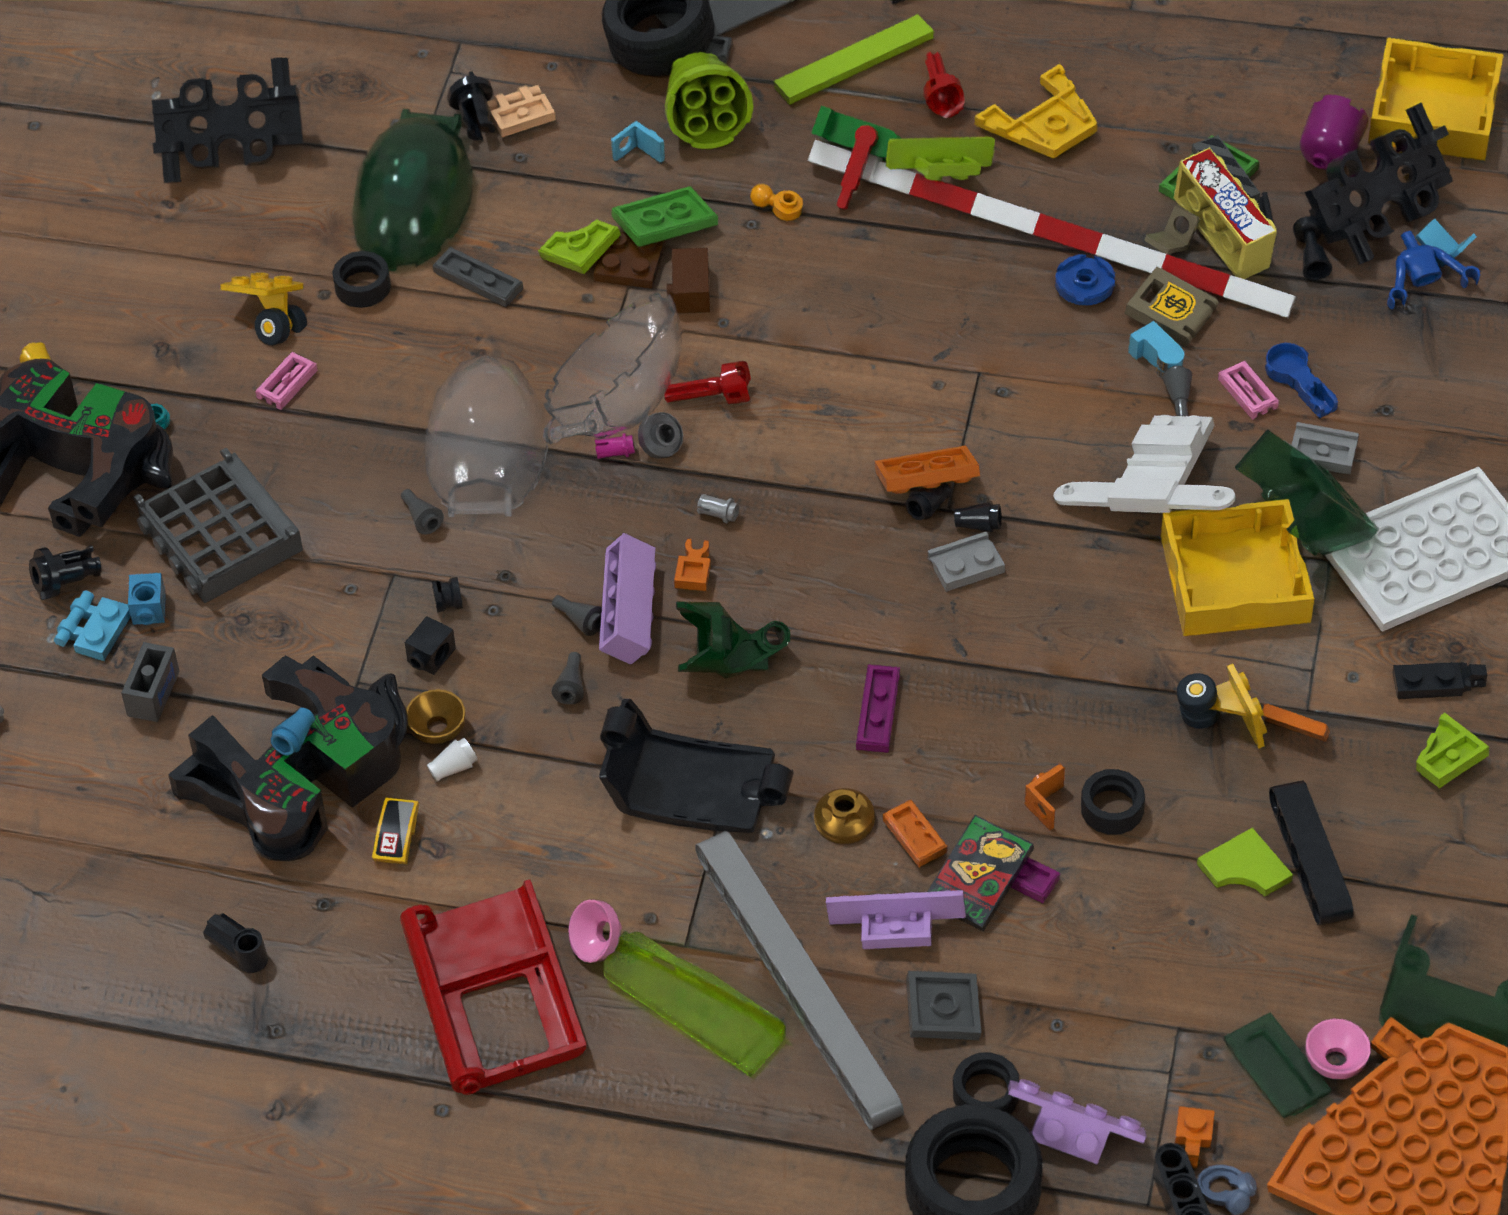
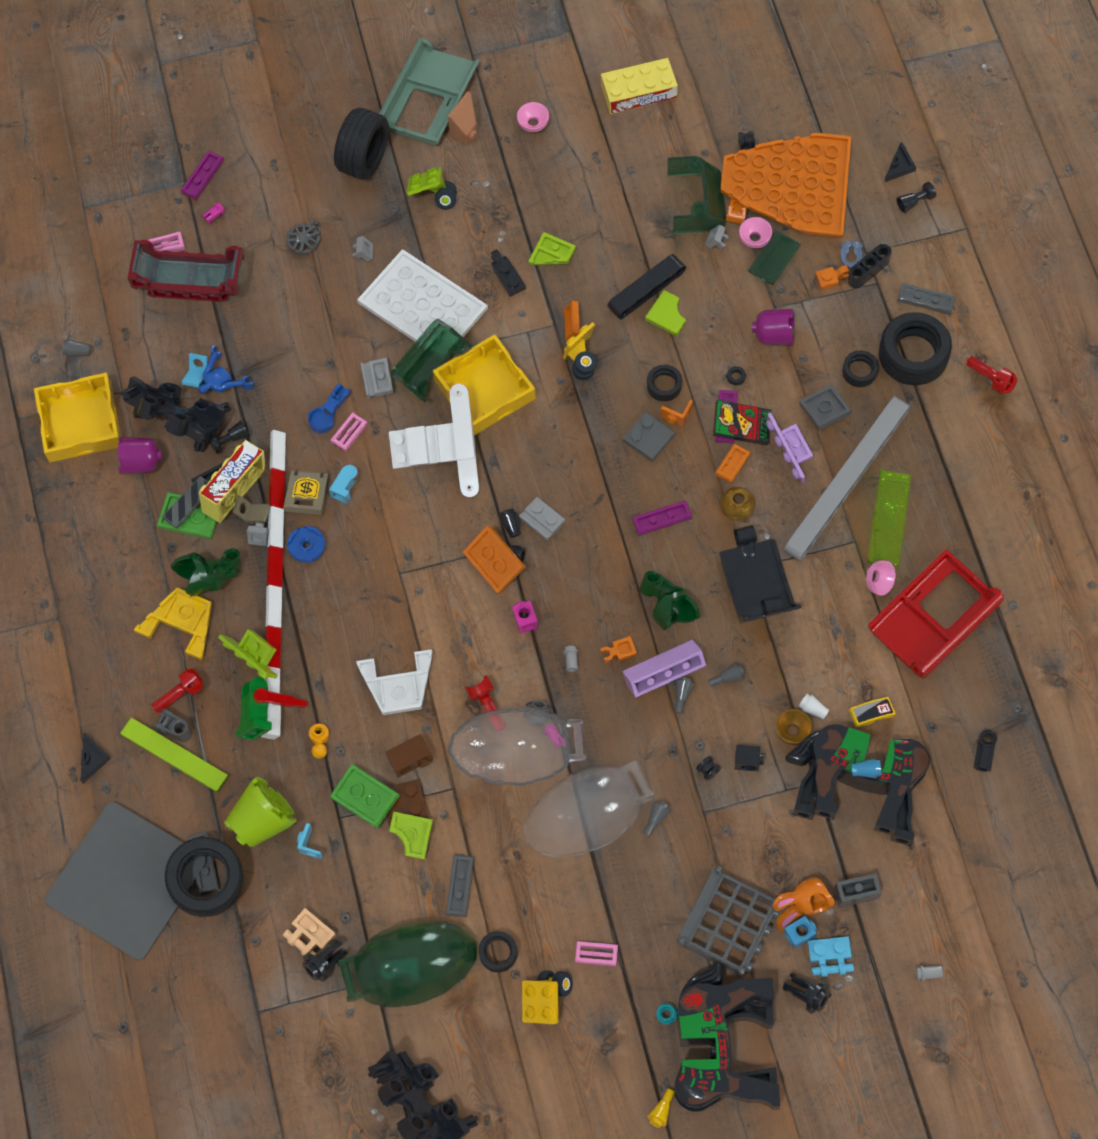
camera: 115 degrees left, 15 degrees up
(182, 616) = (807, 899): none -> orange piece
(794, 301) = (398, 691): none -> white wing
(816, 476) = (524, 624): none -> dark pink brick
(892, 65) = (170, 724): none -> dark grey piece
(1028, 747) = (649, 437): none -> dark grey plate
(1073, 1127) = (859, 321): lavender bracket -> none
(1075, 901) = (736, 369): none -> black piece
(1094, 150) = (205, 573): none -> dark green piece
(1125, 990) = (774, 327): none -> magenta cylinder
(1132, 231) = (257, 534): none -> light grey tile
(1178, 384) = (365, 464): dark grey cone -> none
(1360, 990) = (715, 236): none -> light grey tile

